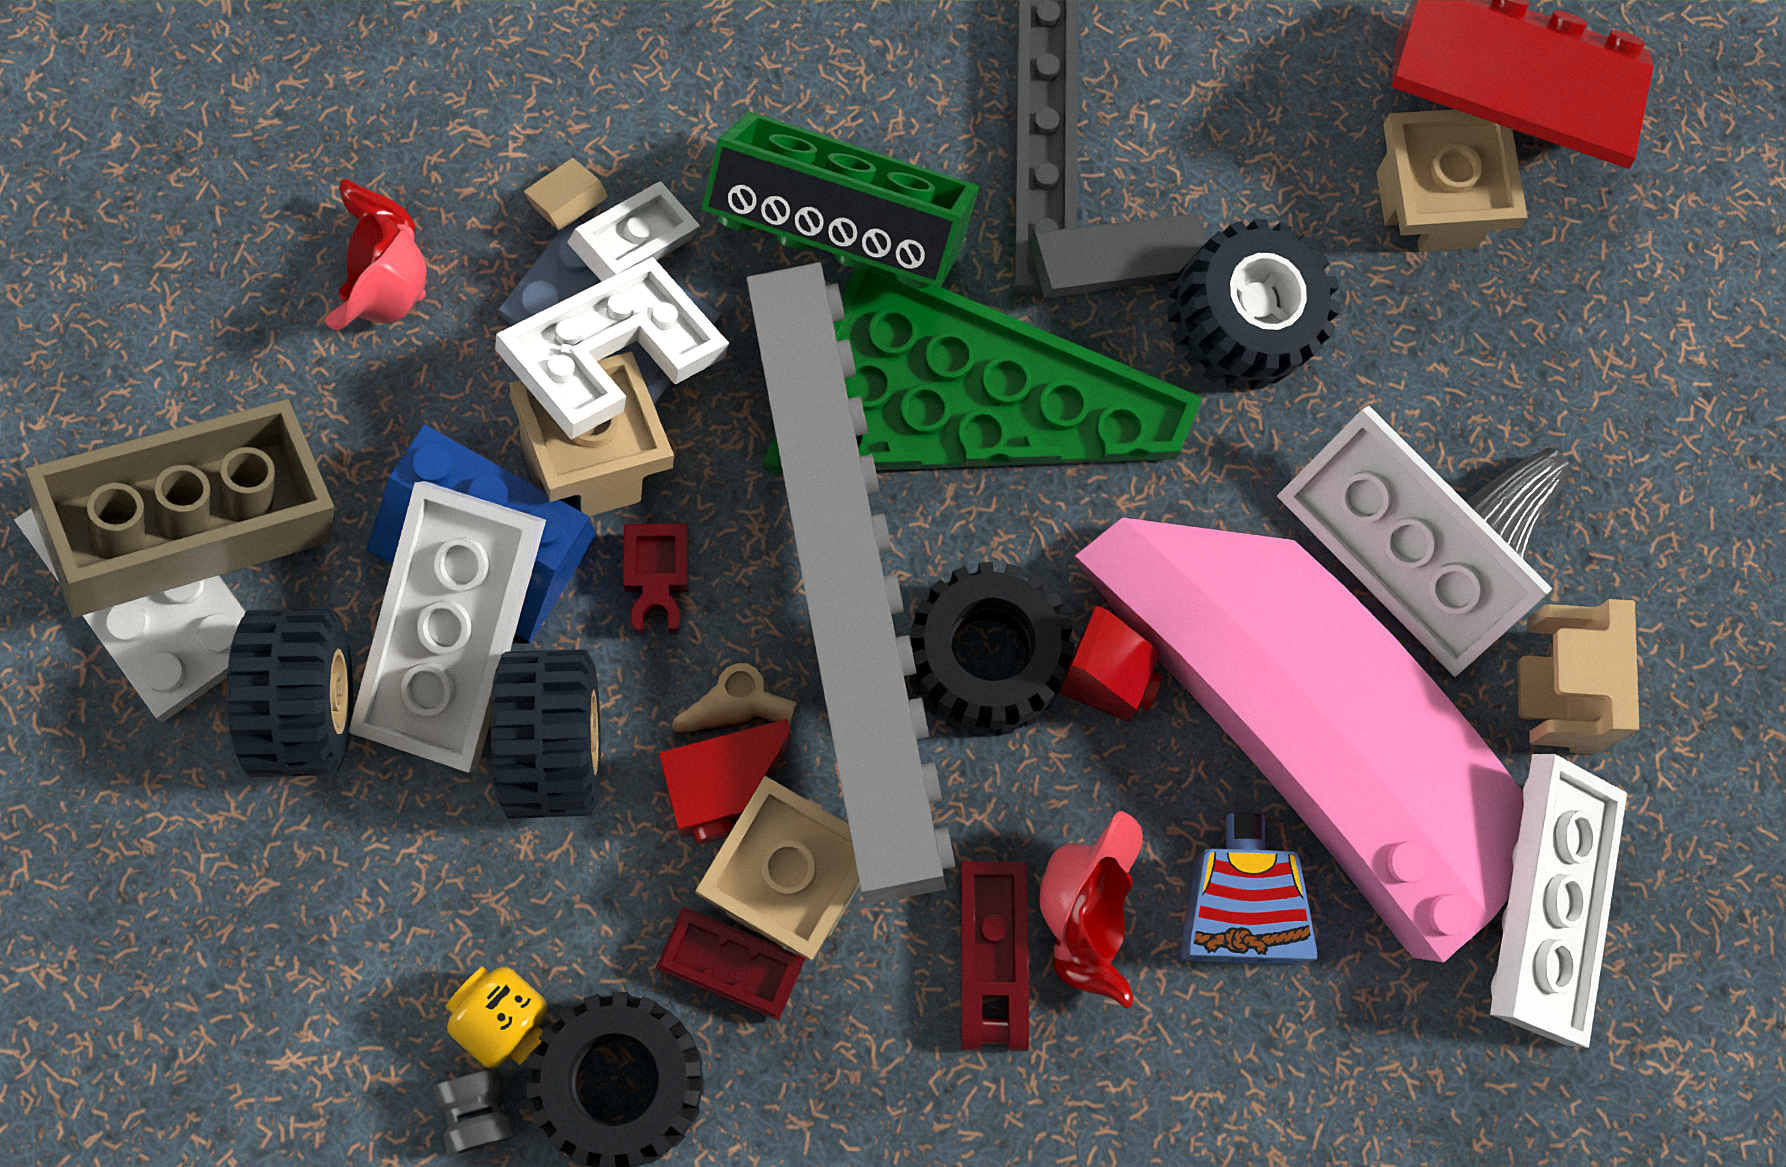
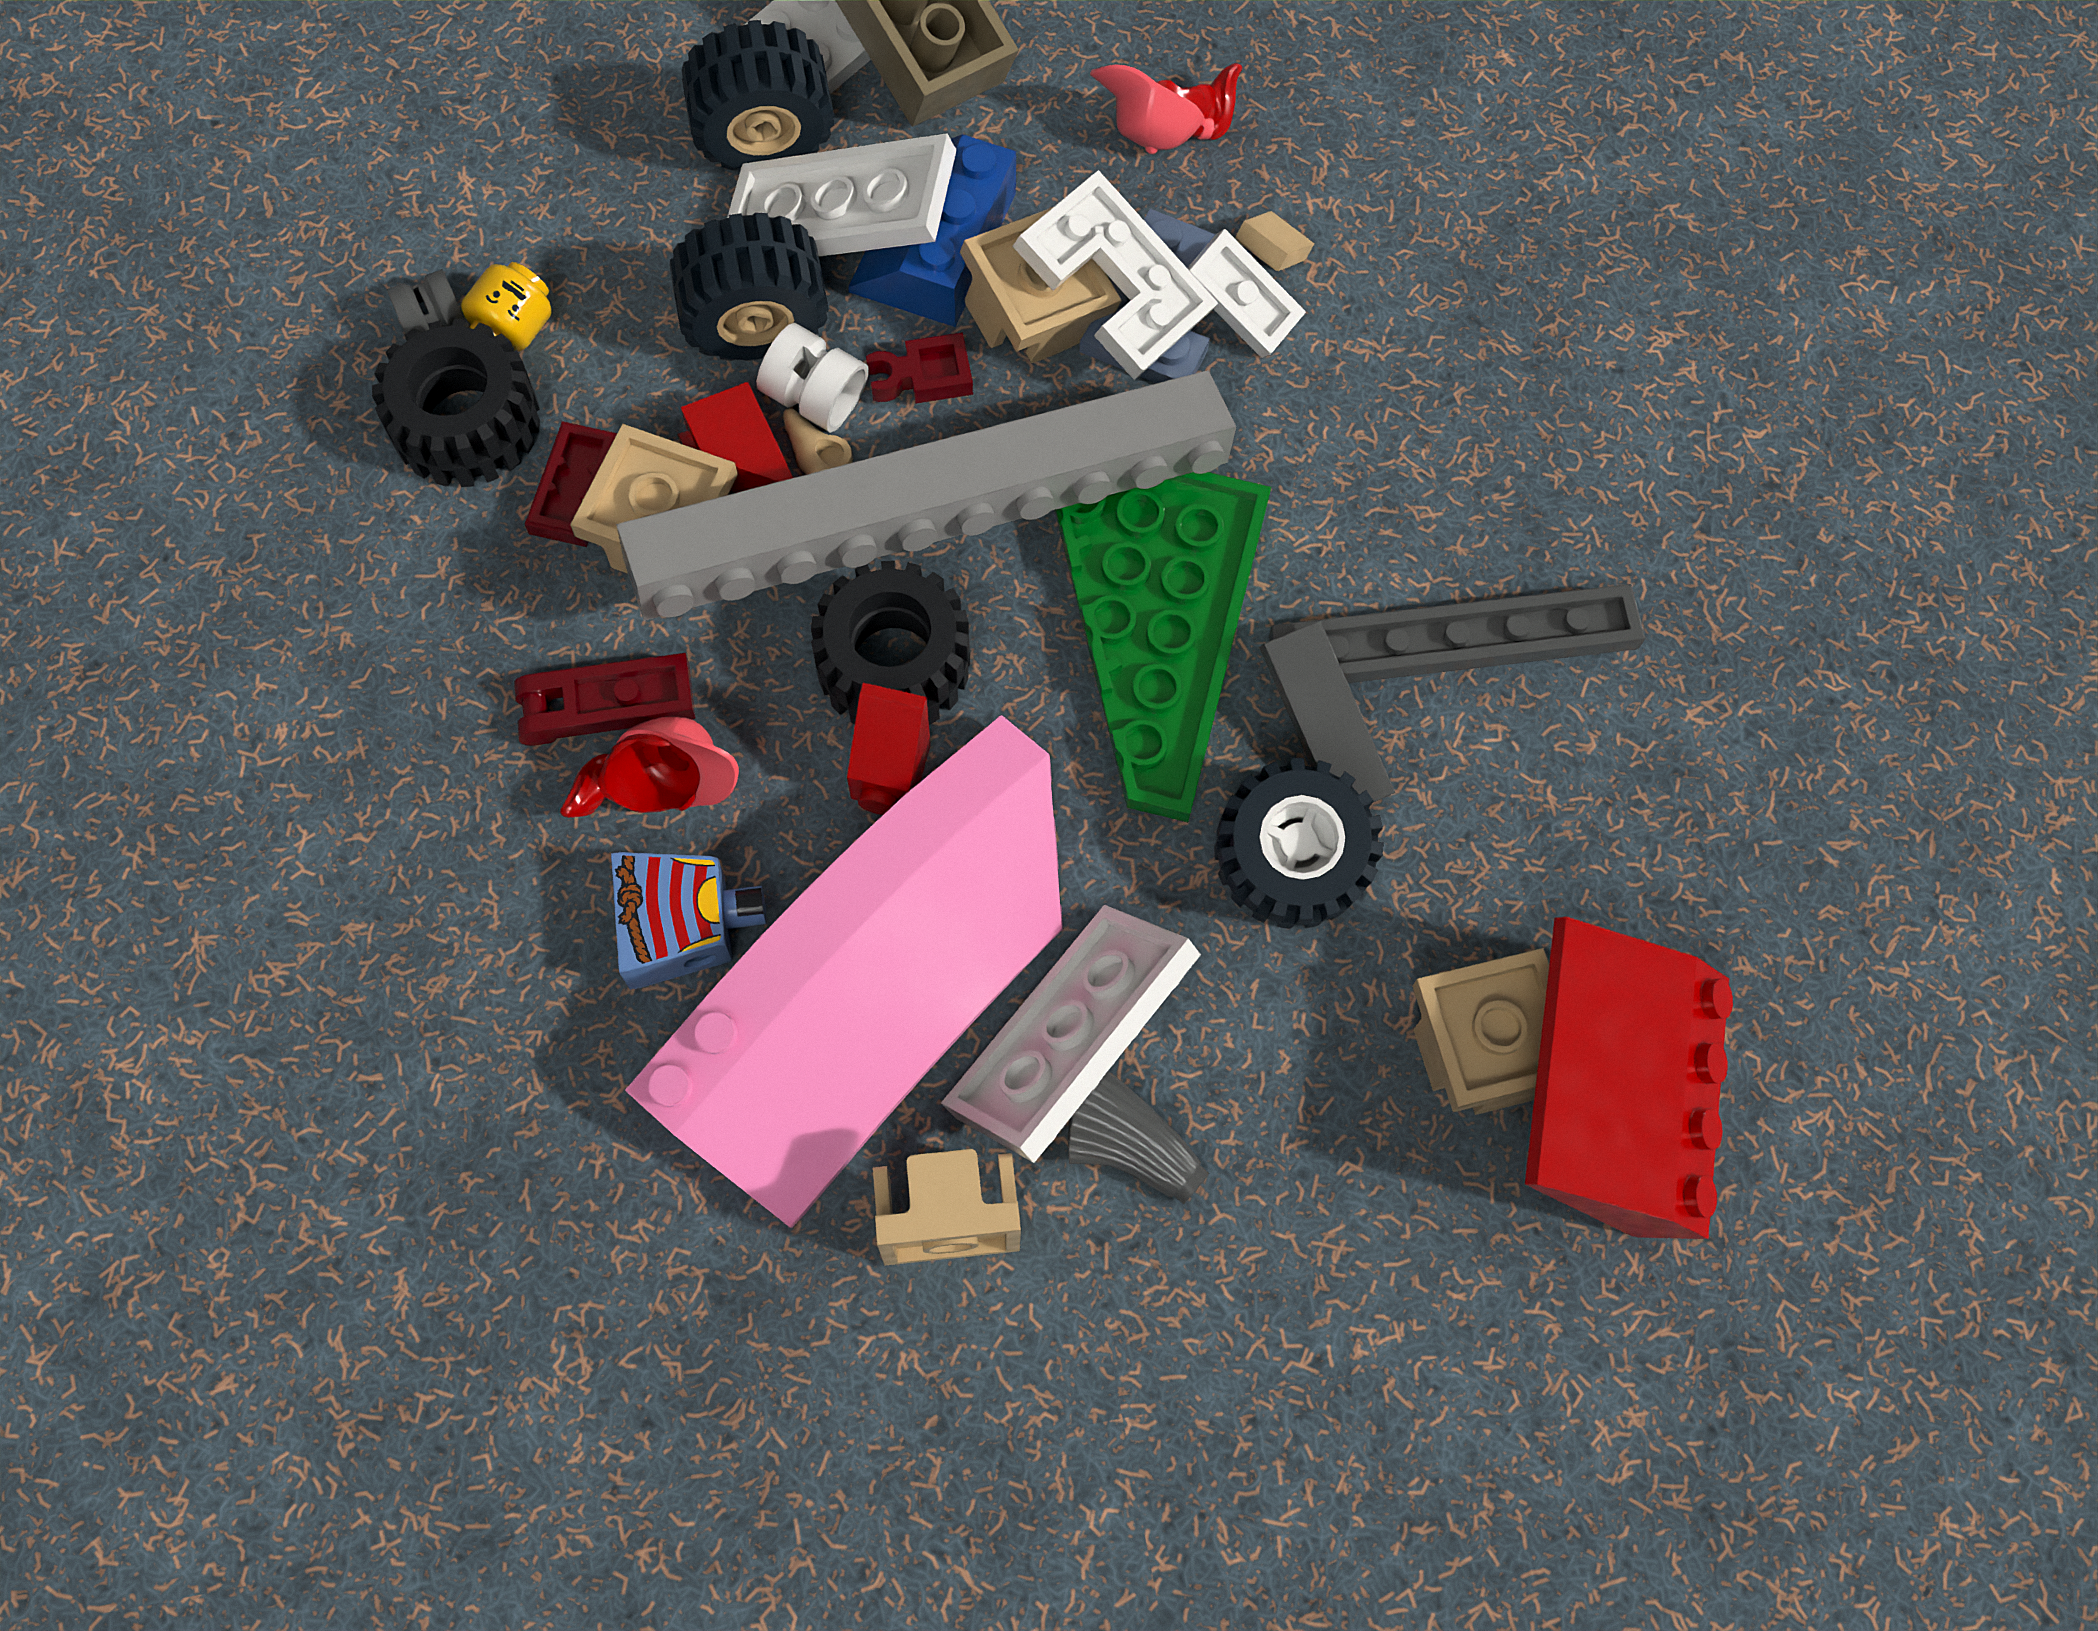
camera: 85 degrees right, 5 degrees down
(667, 668) = (806, 374): none -> white wheel
(839, 200) = (1314, 447): brick -> none
(1558, 901) = (707, 1215): white plate -> none

